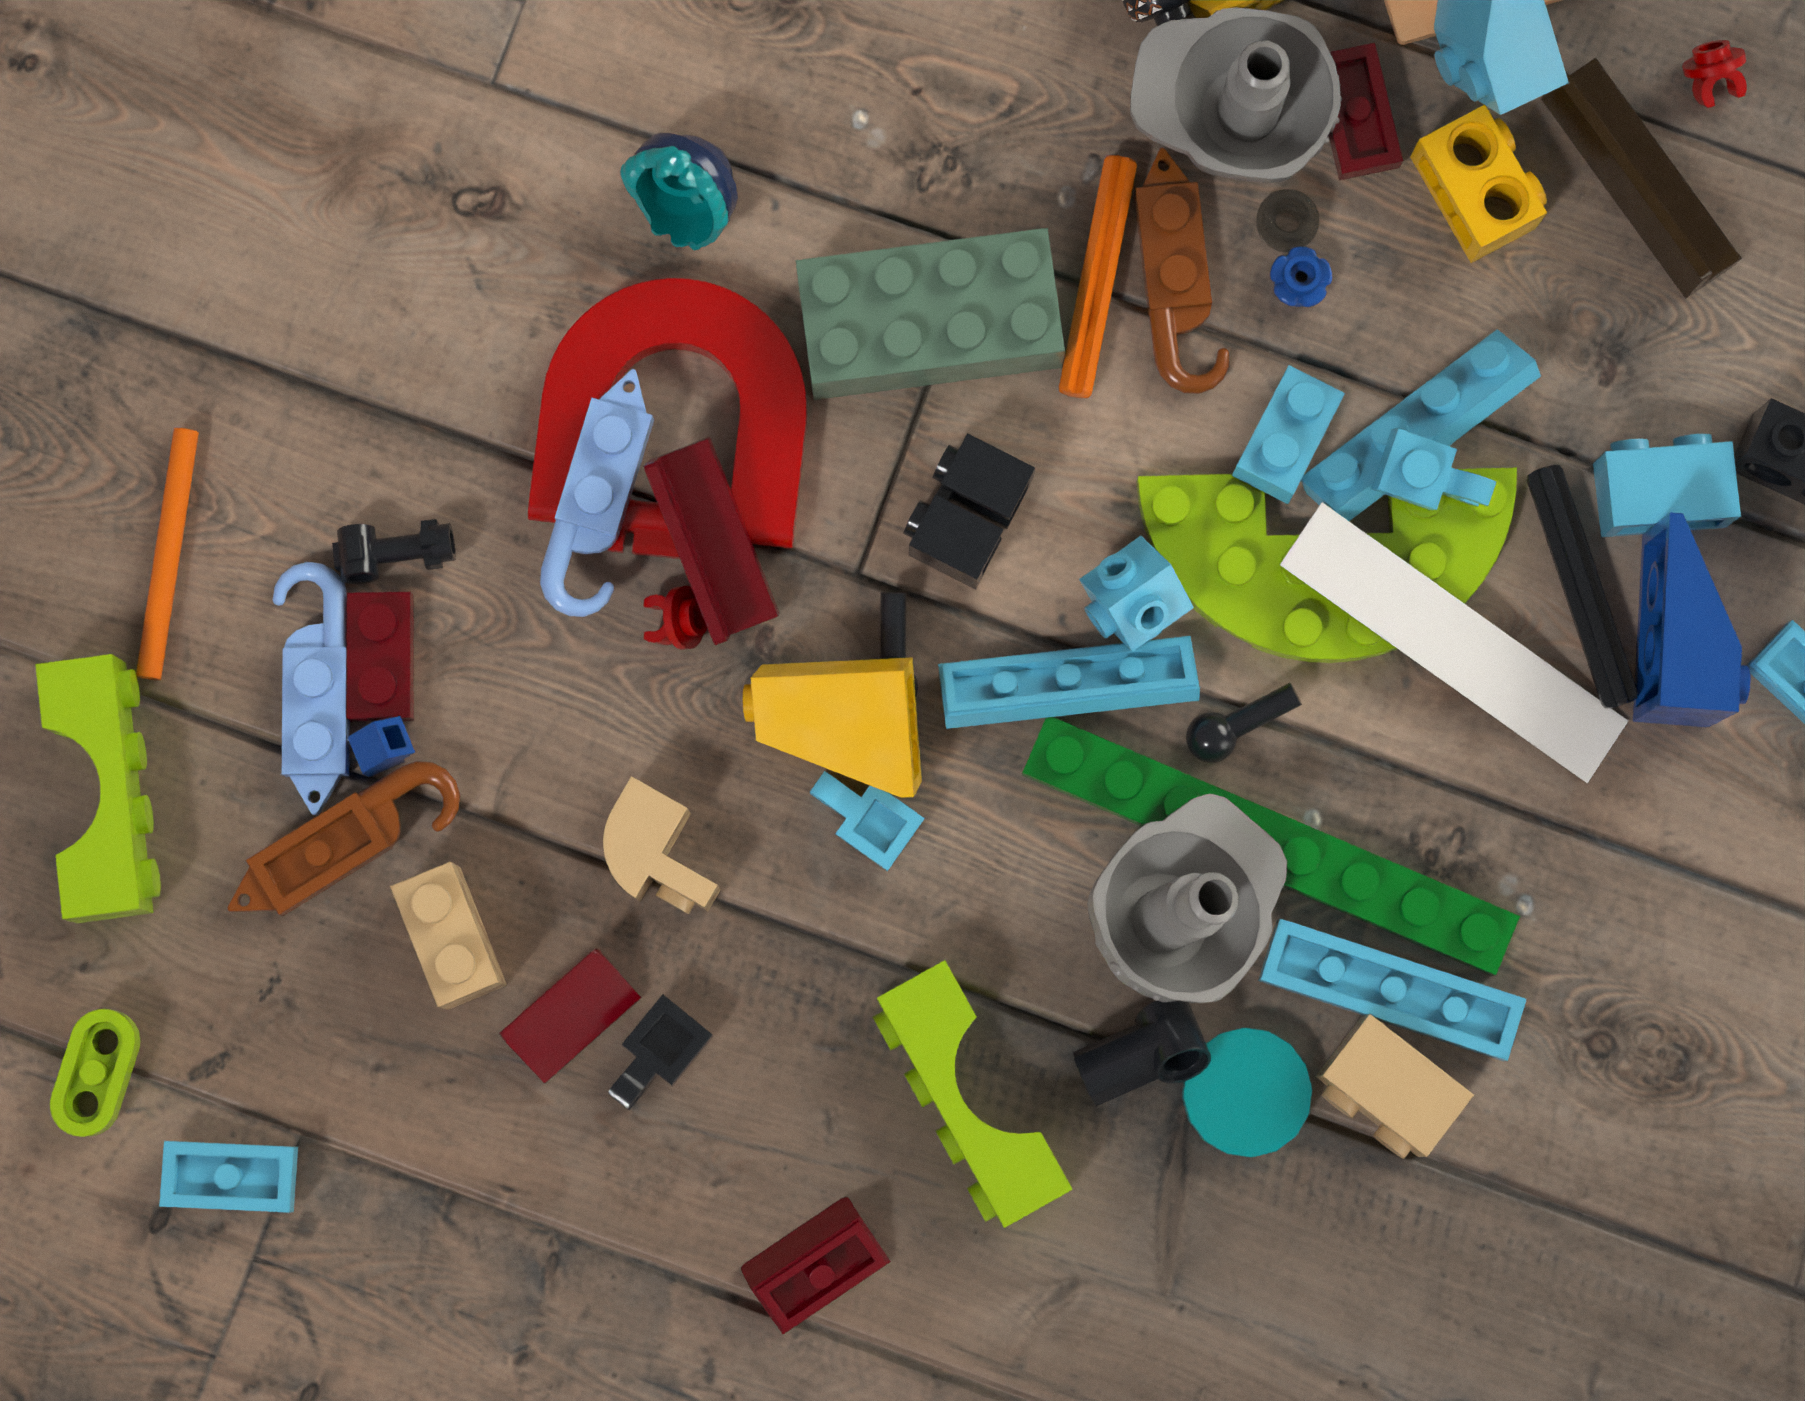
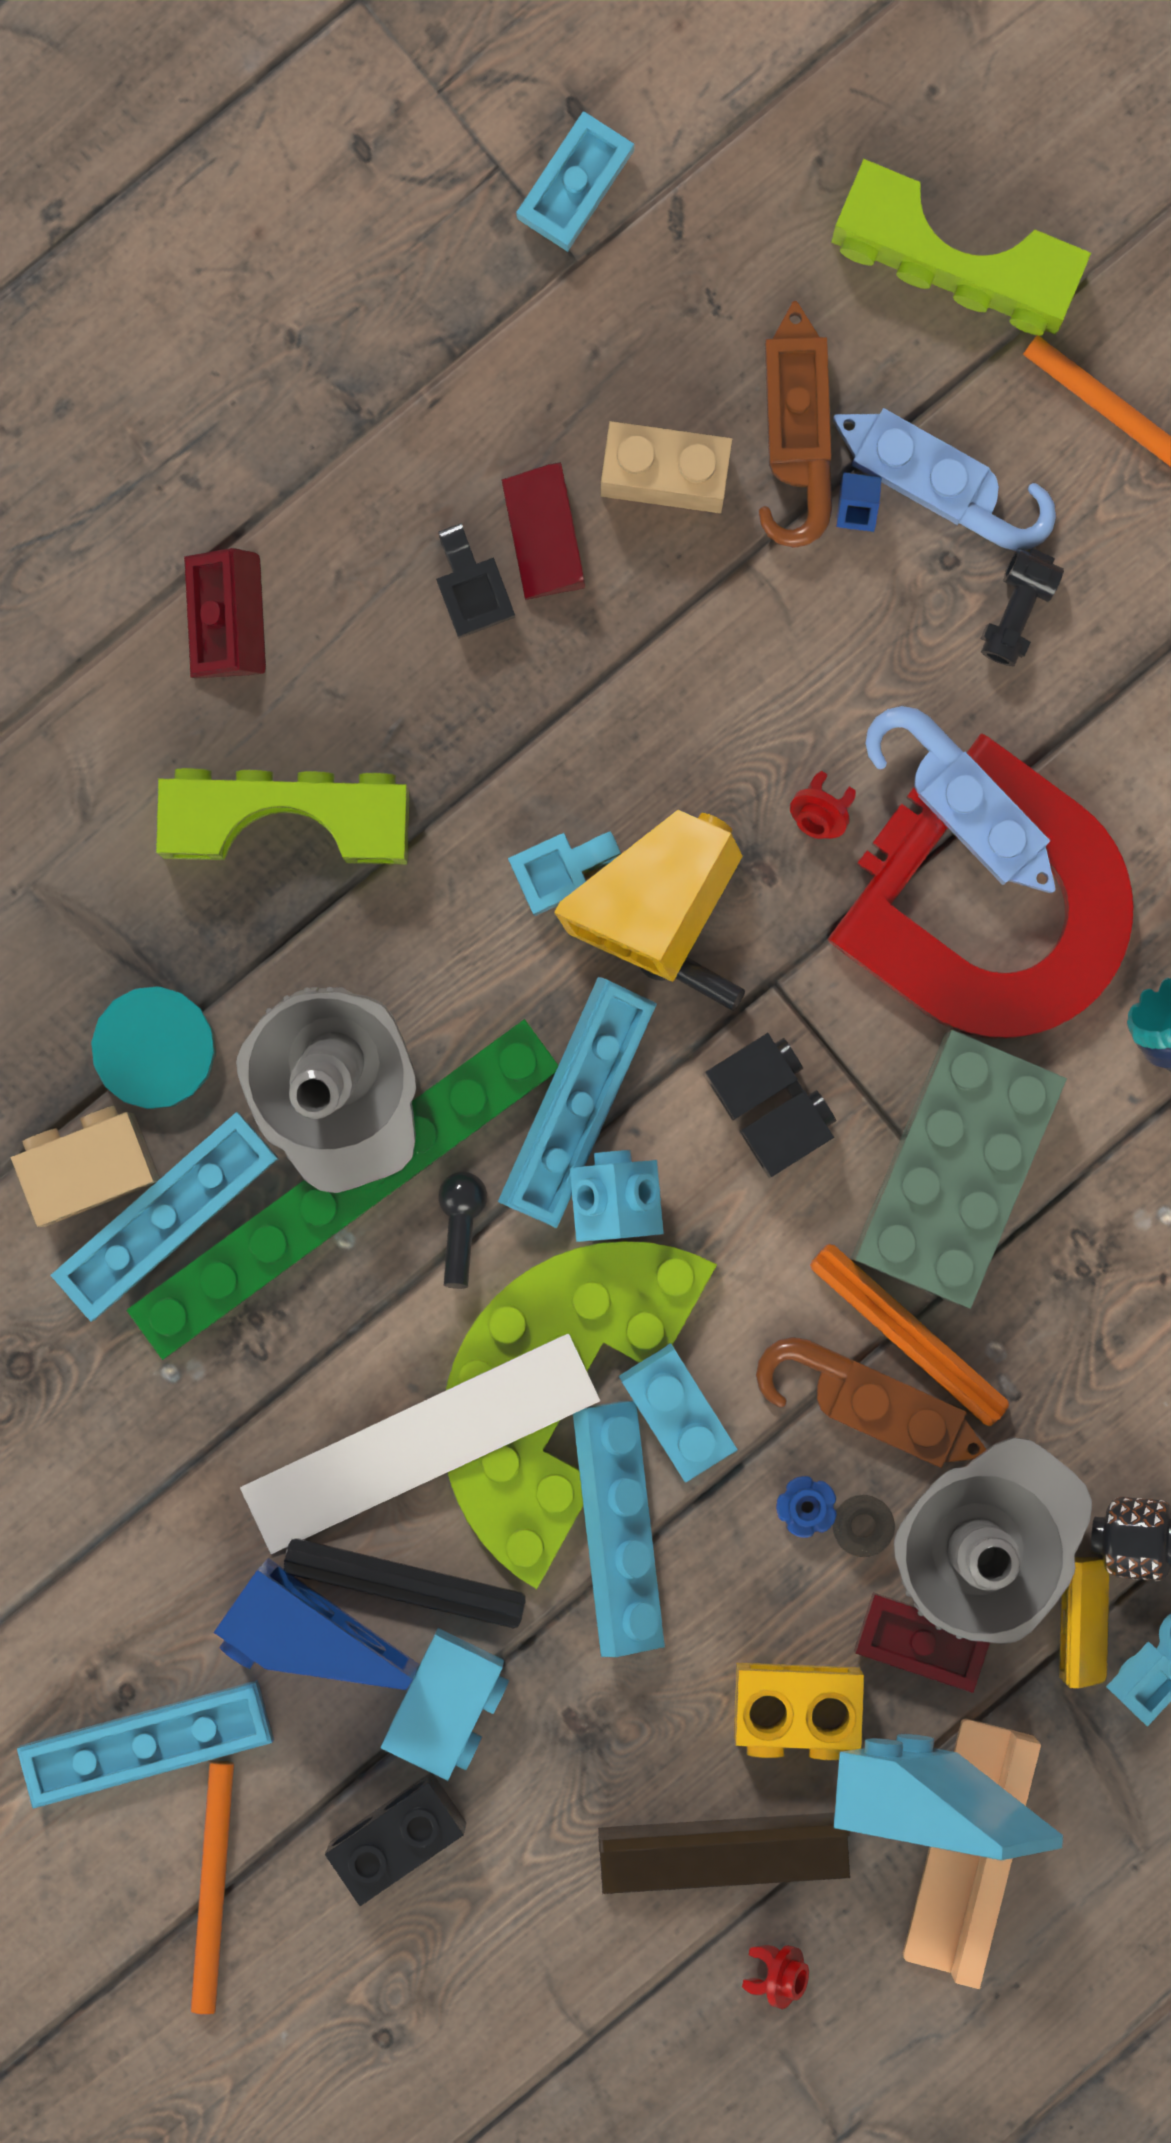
camera: 125 degrees right, 5 degrees up
(90, 1070) = (726, 121): lime plate -> none
(380, 656) = (936, 545): dark red plate -> none
(637, 847) = (648, 663): tan brick -> none
(711, 539) = (871, 870): dark red panel -> none
(1159, 1046) = (231, 994): black piece -> none
(1421, 471) = (575, 1500): medium azure plate -> none

